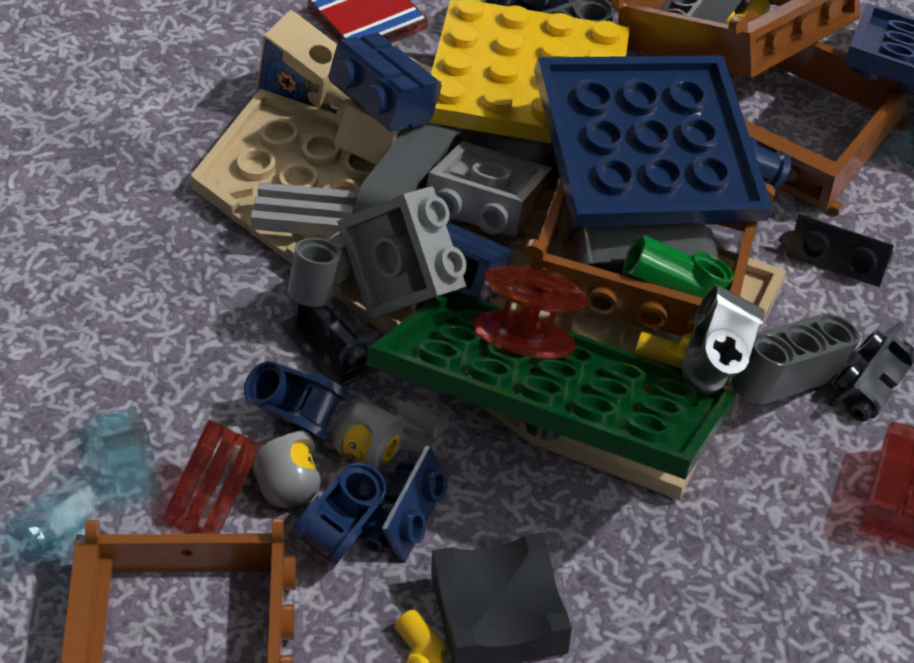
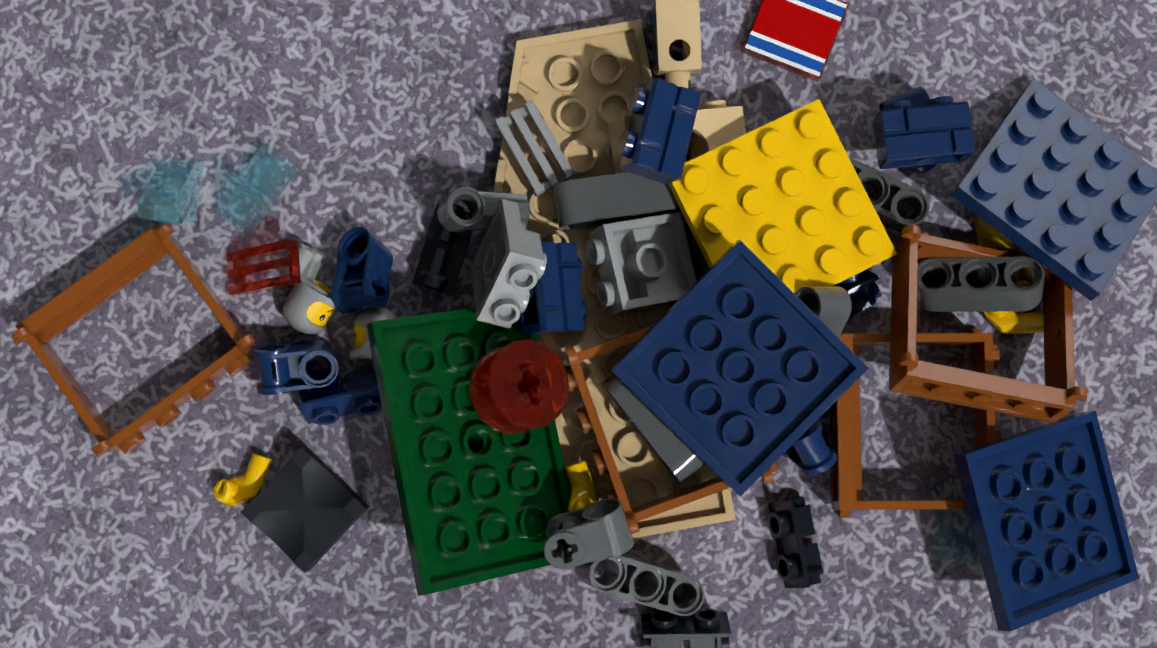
camera: 50 degrees right, 35 degrees up
(674, 269) = (639, 460): green piece -> none

